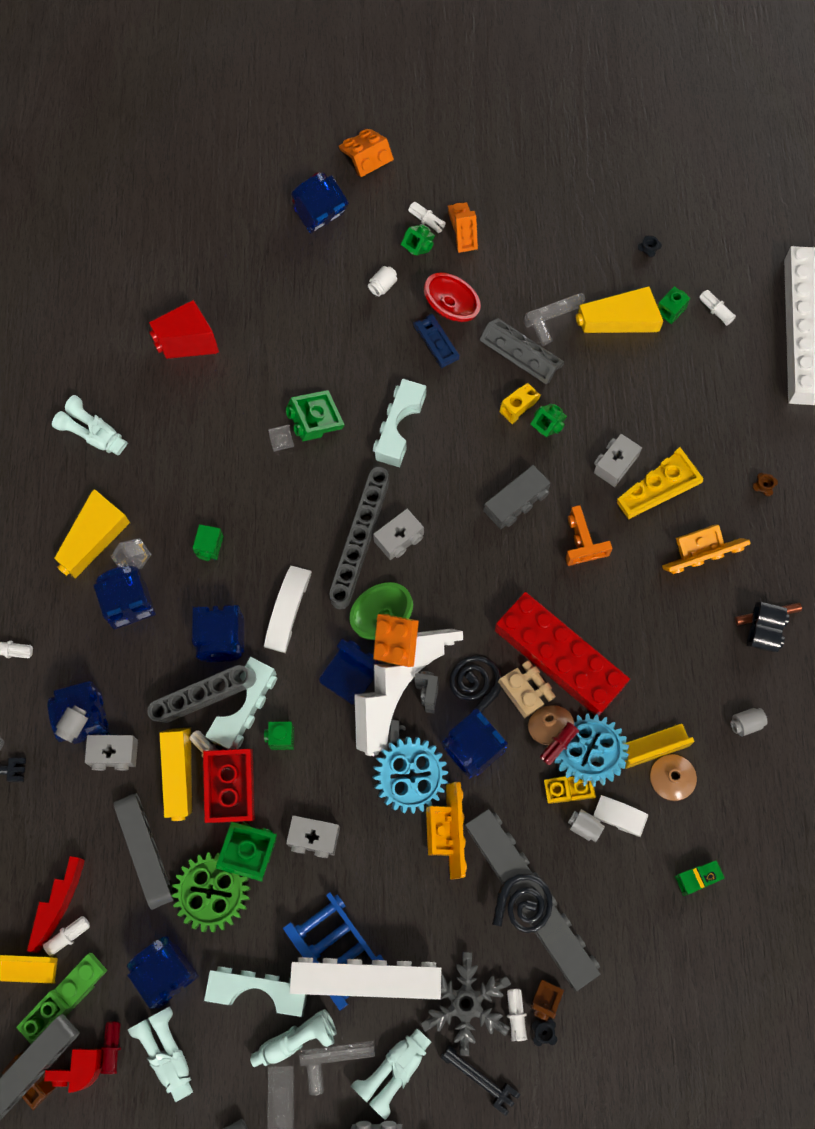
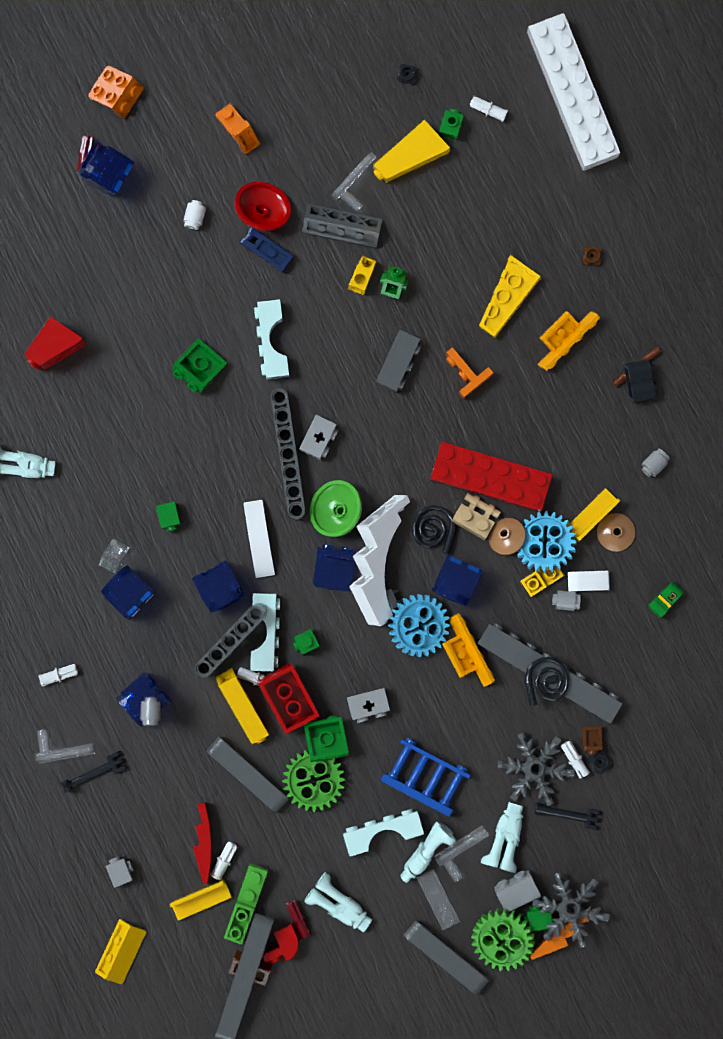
camera: 25 degrees left, 15 degrees up
(90, 534) = (70, 550): yellow slope -> none
(99, 745) = (190, 706): light grey brick -> none
(160, 972) = (308, 852): clear blue piece -> none
(281, 438) = (180, 398): clear plate -> none
(365, 980) = (459, 787): white brick -> none
(395, 640) = (362, 531): orange plate -> none
(418, 239) = (206, 163): green brick -> none
(426, 217) = (201, 133): white axle -> none
(429, 686) = (405, 558): dark grey bracket -> none
(559, 743) = (520, 550): dark red axle -> none
(612, 470) = (470, 281): light grey brick -> none

